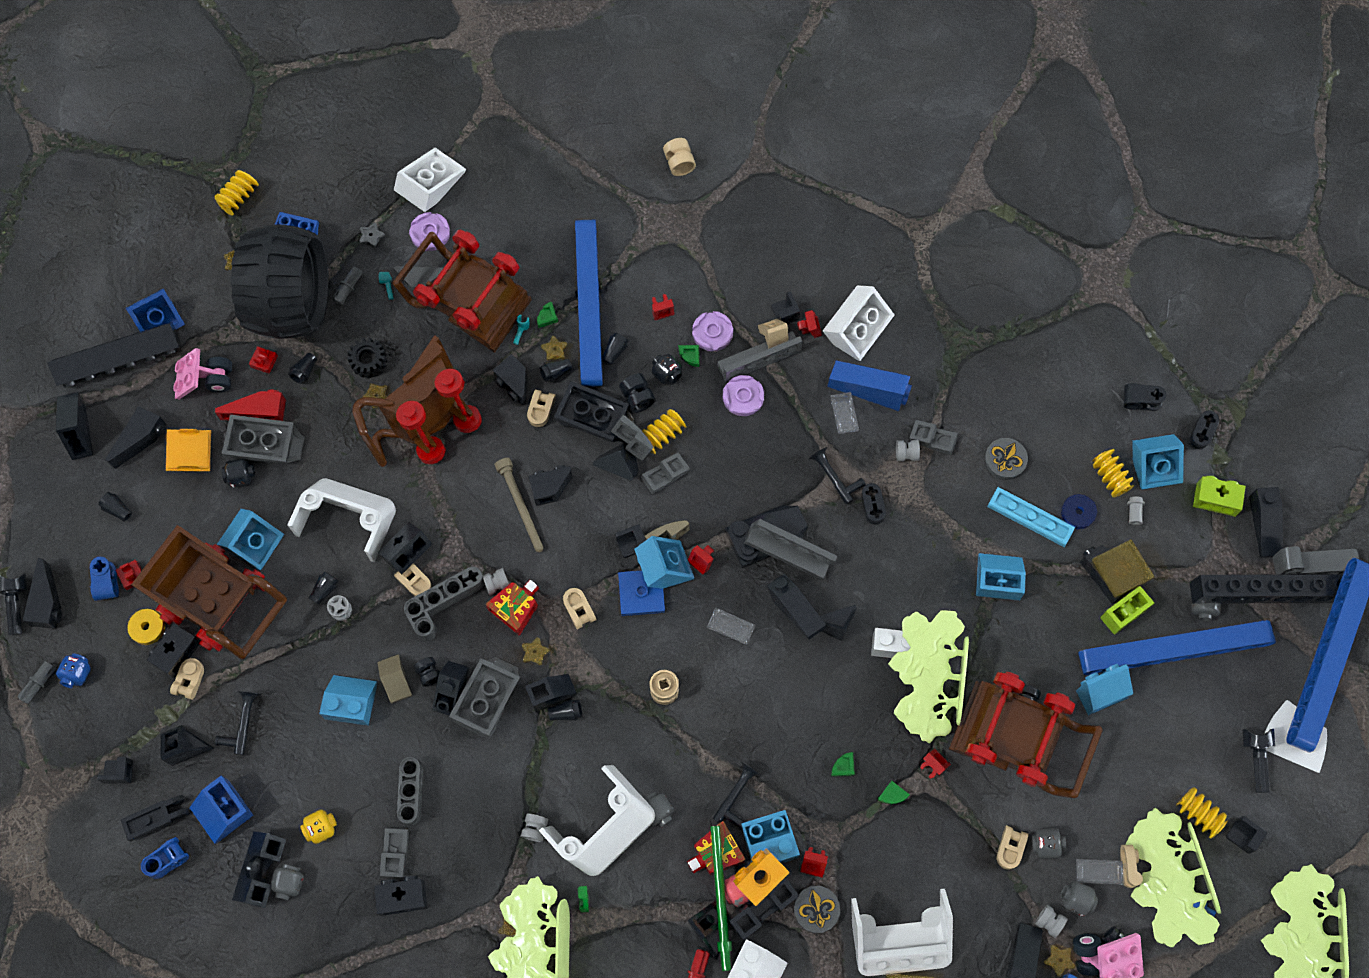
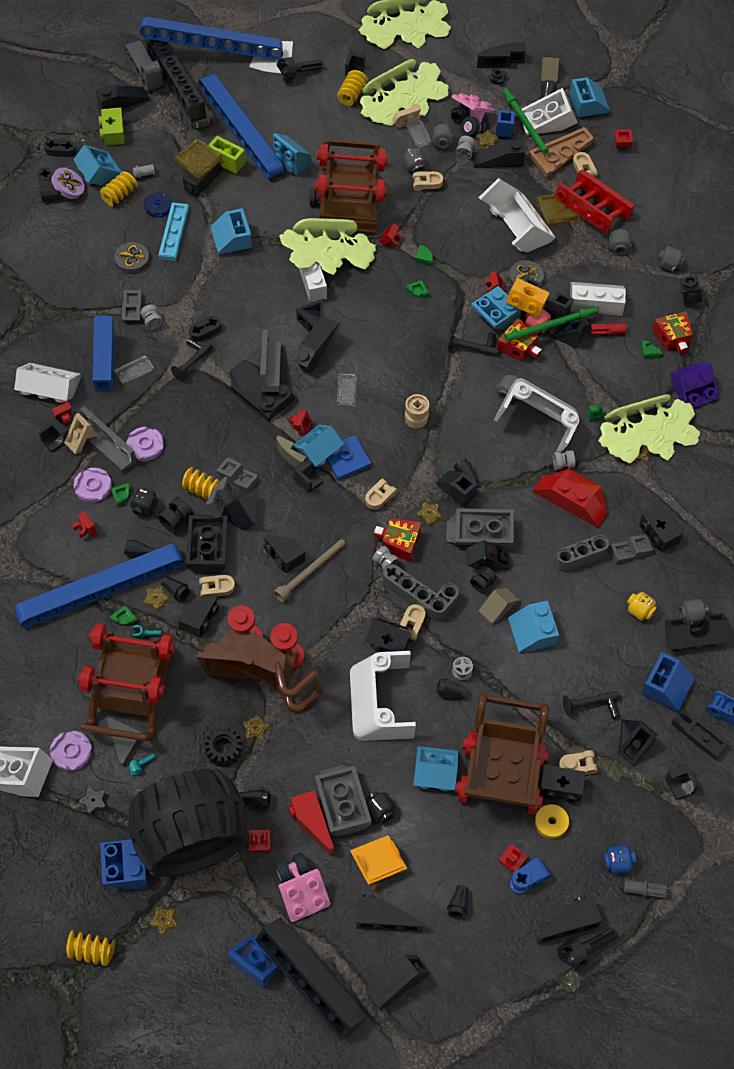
camera: 115 degrees left, 10 degrees down
(487, 819) = (574, 495): none -> red wedge
(1137, 418) = (68, 183): none -> lavender tile

